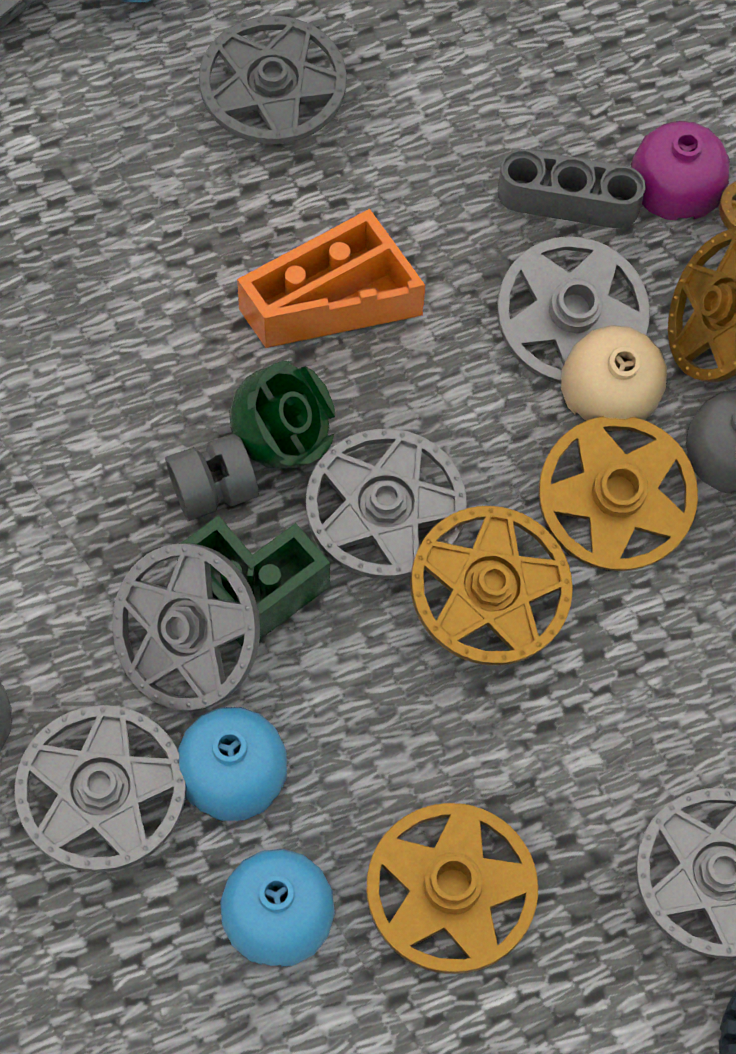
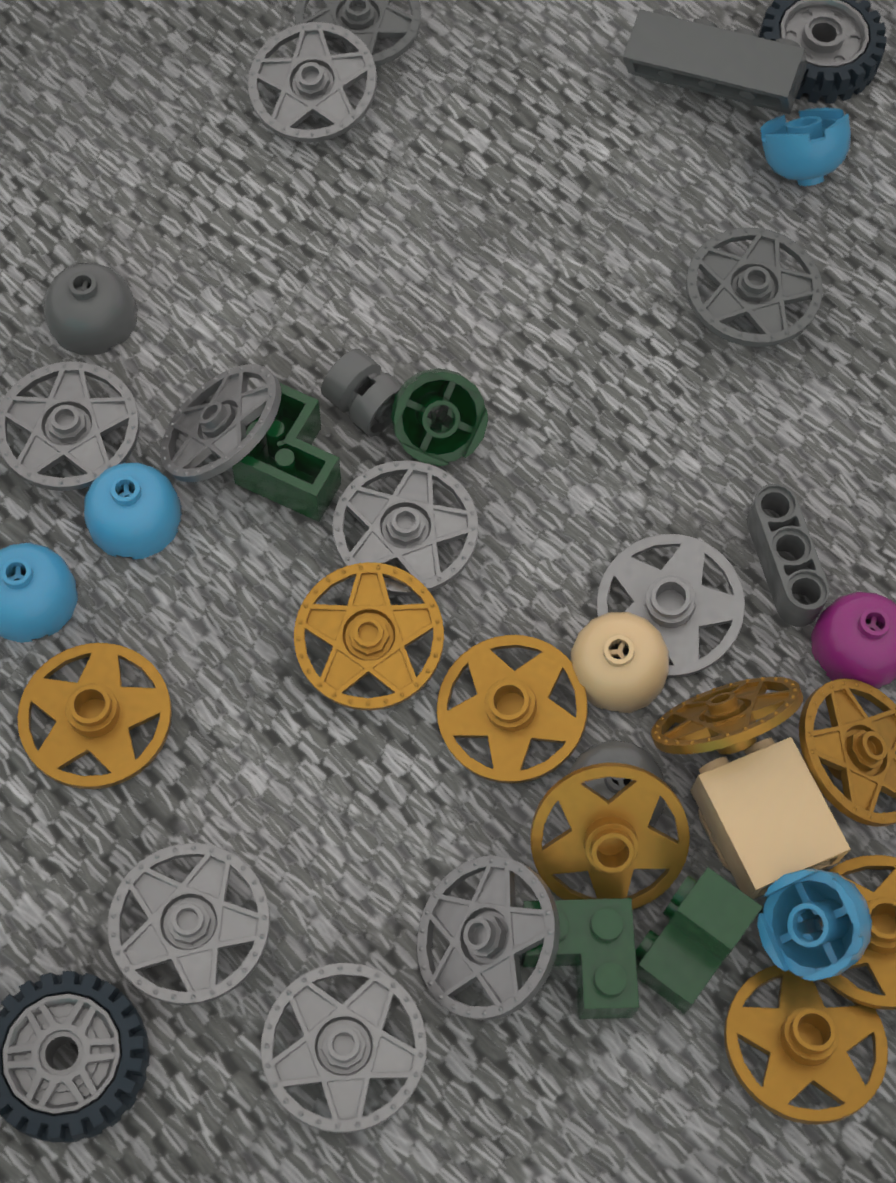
camera: 65 degrees right, 0 degrees up
(332, 285) = (581, 404): orange wedge -> none

